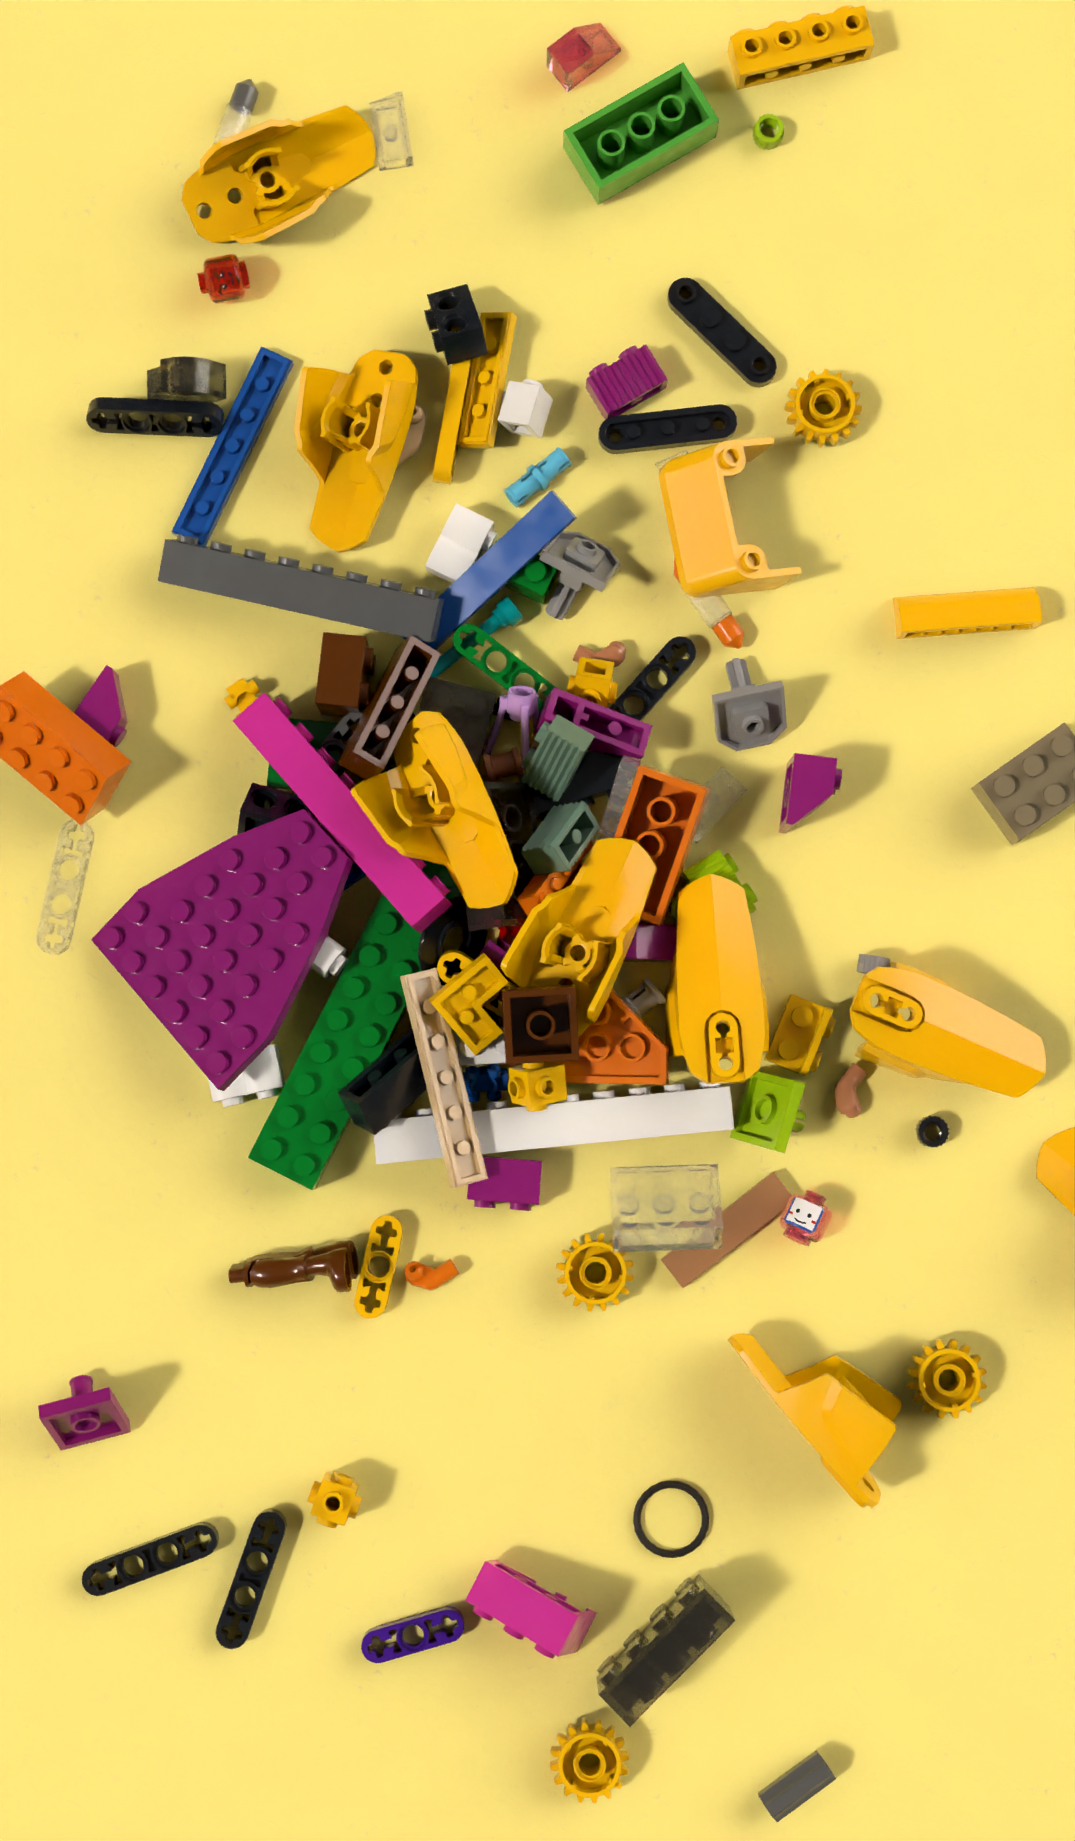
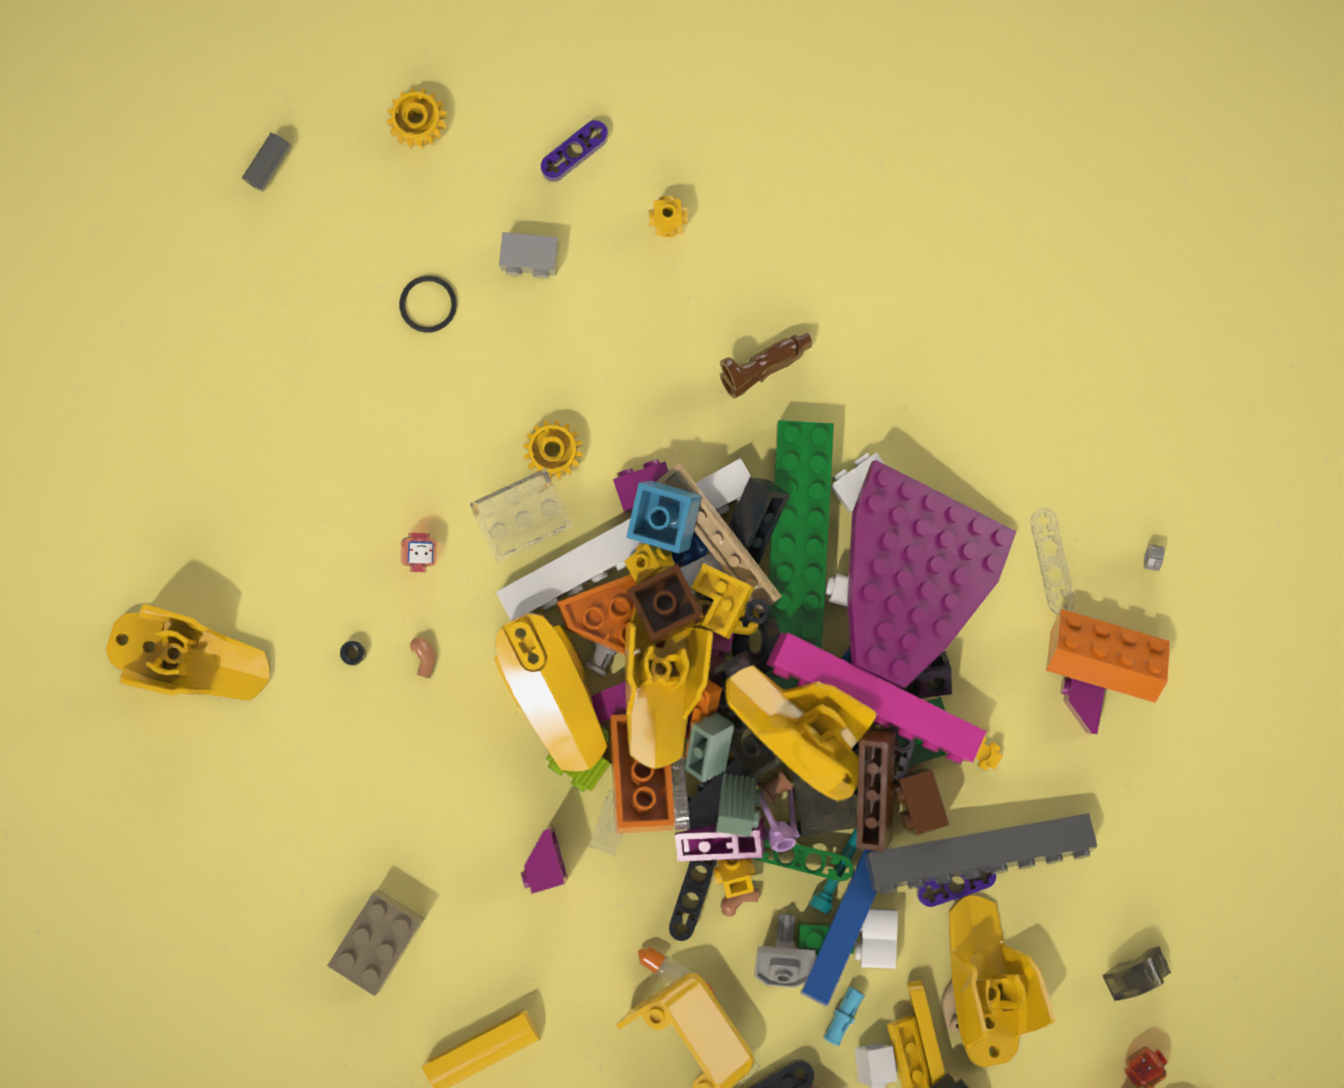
camera: 165 degrees right, 0 degrees up
(84, 1416) = (867, 198): magenta tile -> none
(151, 1561) = (775, 121): black beam -> none
(154, 412) = (1186, 923): black beam -> none
(233, 446) = (1080, 942): blue tile -> none
(248, 1577) = (702, 140): black beam -> none
(362, 1290) = (697, 371): yellow beam -> none
(371, 559) = (938, 897): none -> dark purple beam
(423, 970) = (749, 611): none -> black axle
(428, 1277) = (668, 396): orange arm -> none
(497, 1130) = (664, 516): none -> dark azure brick
(523, 1526) = (529, 255): none -> light grey brick
(529, 1610) = (500, 199): dark pink wedge -> none
(663, 1649) = (396, 212): clear smoke brick -> none
(739, 1222) = (465, 528): medium nougat tile -> none
(748, 713) = (611, 903): light grey piece -> none
(769, 1111) = (475, 615): lime tile -> none
(799, 1035) = (476, 681): yellow bracket -> none
(835, 1410) = (343, 425): yellow piece -> none
(869, 962) = (443, 755): light grey axle -> none
(945, 1034) = (371, 726): yellow piece -> none
(966, 1382) = (259, 474): yellow gear -> none

